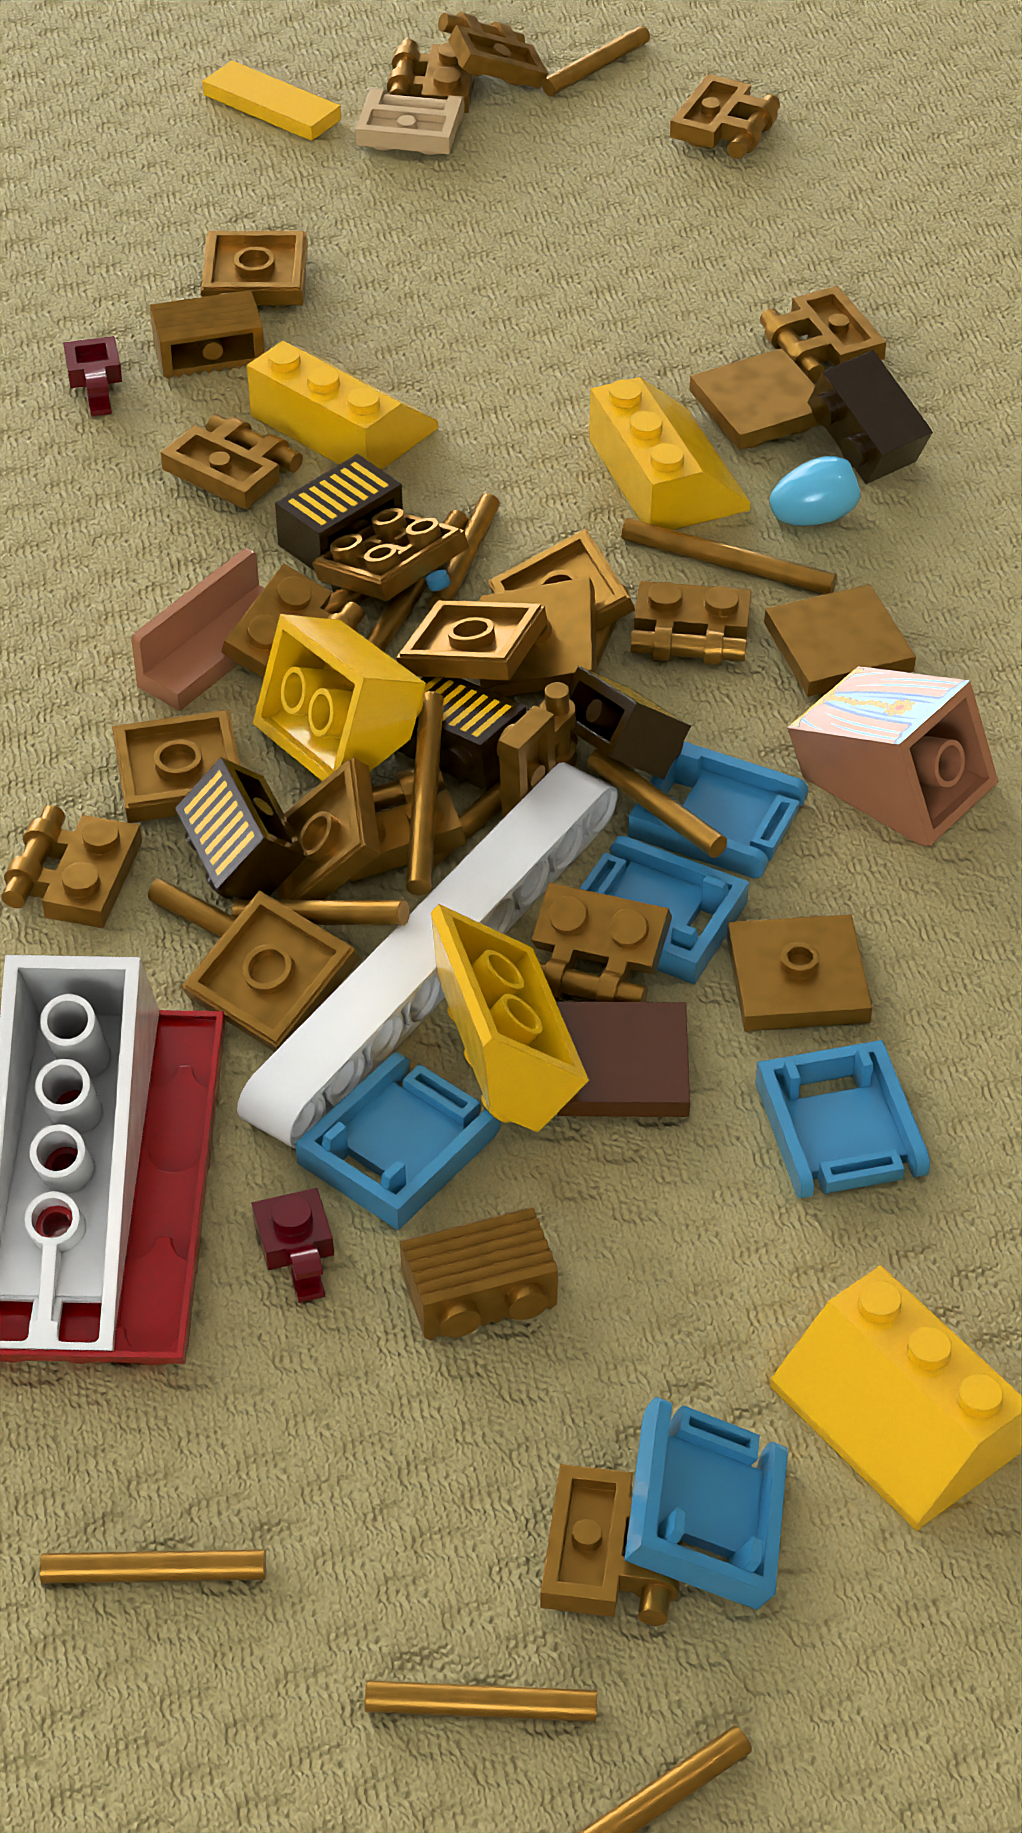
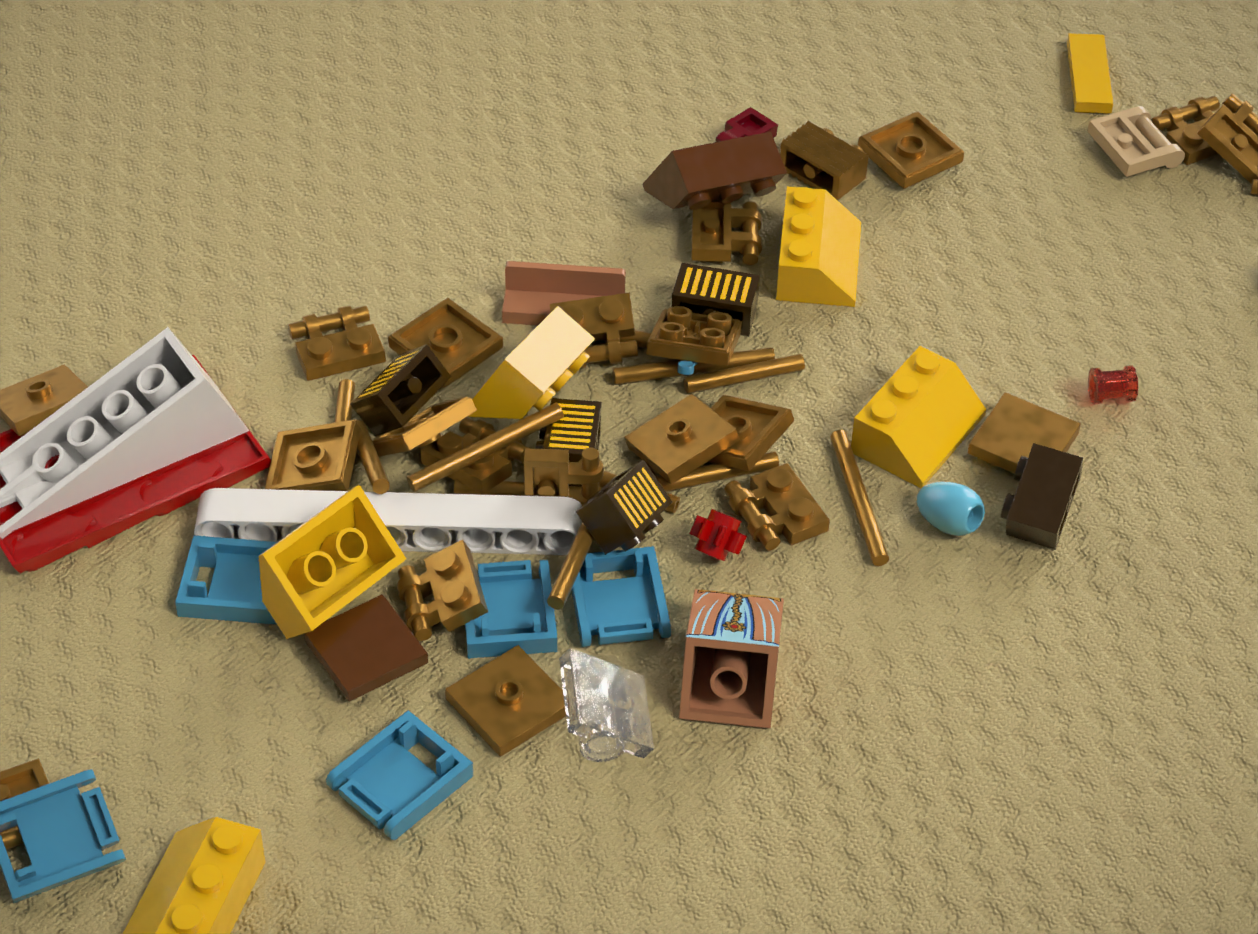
camera: 55 degrees right, 0 degrees up
(168, 409) = (717, 172): none -> reddish brown slope
(295, 1235) = (134, 571): dark red plate -> none
(473, 639) = (631, 404): pearl gold plate -> none
(479, 1273) = (153, 660): pearl gold brick -> none
(707, 679) = (717, 535): none -> red gear
(737, 310) = (1113, 384): none -> clear red bush
(834, 328) = (1138, 444): pearl gold plate -> none
(834, 635) = (821, 584): pearl gold tile -> none
(869, 876) = (605, 707): none -> clear plate

